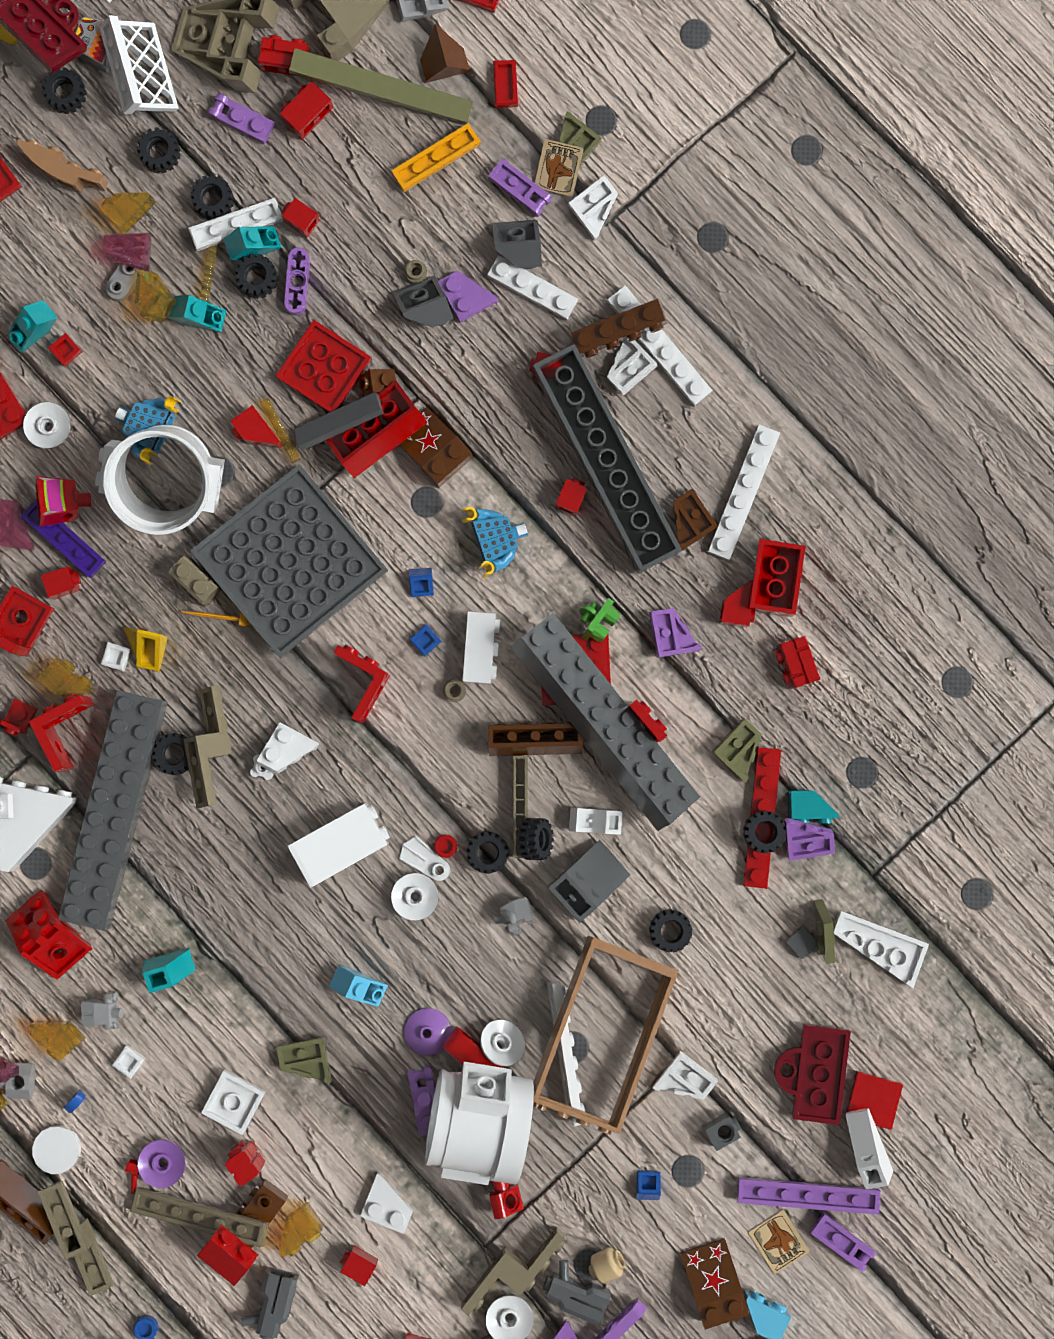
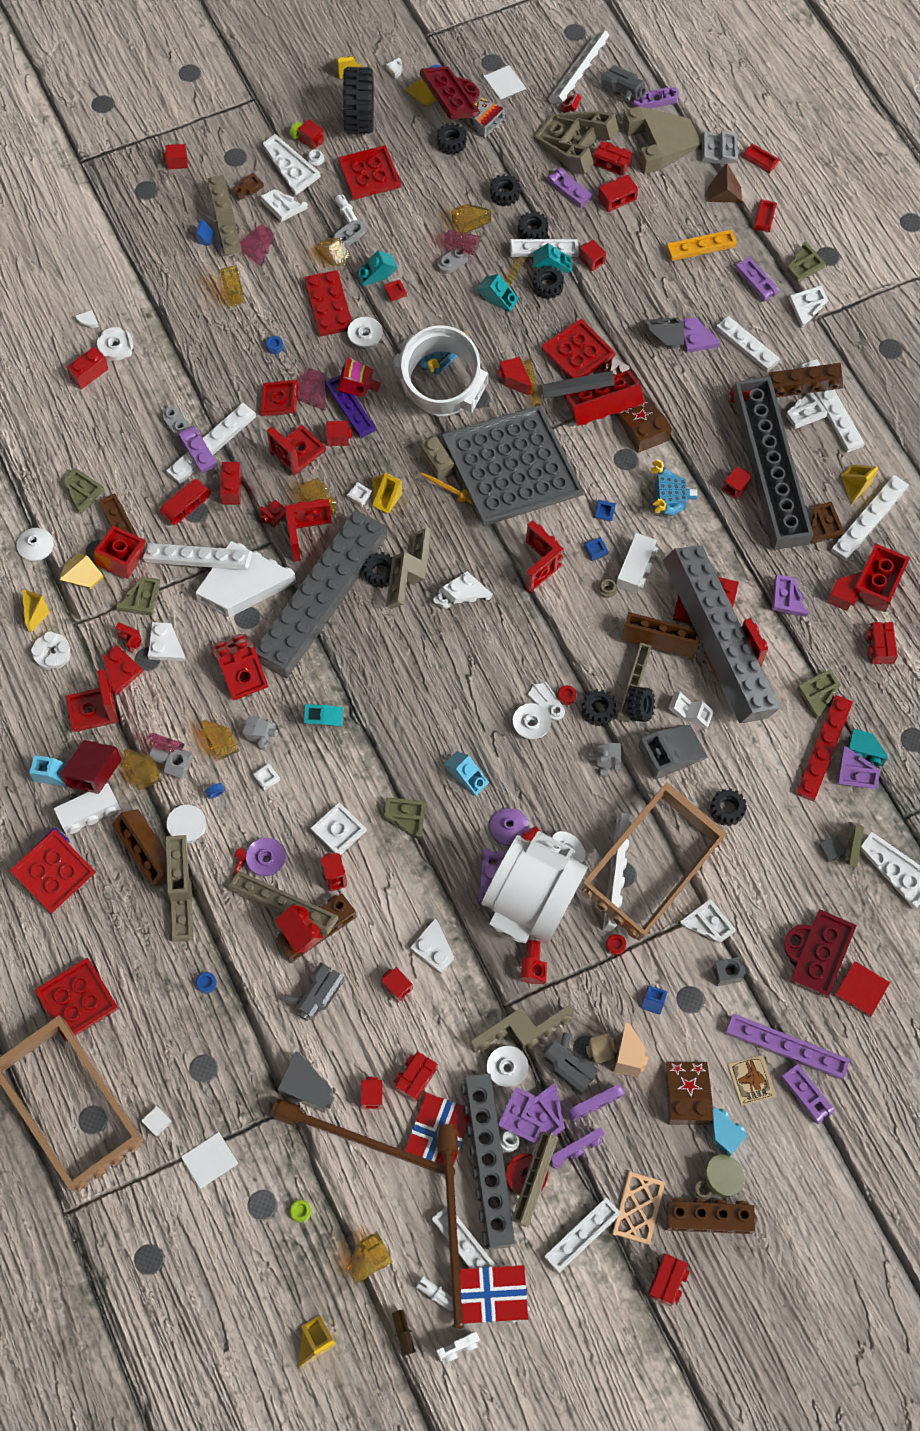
camera: 25 degrees right, 20 degrees down
(58, 168) = (436, 187): medium nougat slope -> none
(123, 66) = (499, 133): white fence -> none
(152, 296) = (469, 274): clear yellow slope -> none
(300, 1227) = (358, 940): clear yellow slope -> none
(304, 265) = (577, 301): medium lavender beam -> none
(339, 844) = (485, 665): white slope -> none
(380, 86) = (675, 191): olive tile -> none
(415, 264) = (664, 310): dark tan plate -> none
(519, 242) = (747, 312): dark grey slope -> none
(558, 167) = (789, 273): sticker -> none
(588, 1136) = (616, 944): none -> red tile
(595, 629) = (734, 567): bright green hips -> none
(640, 1269) = (631, 1053): none -> light nougat slope
(715, 445) = (858, 479): none -> yellow slope
(779, 831) = (817, 759): black tyre -> none
(868, 1149) = (848, 1019): white slope -> none

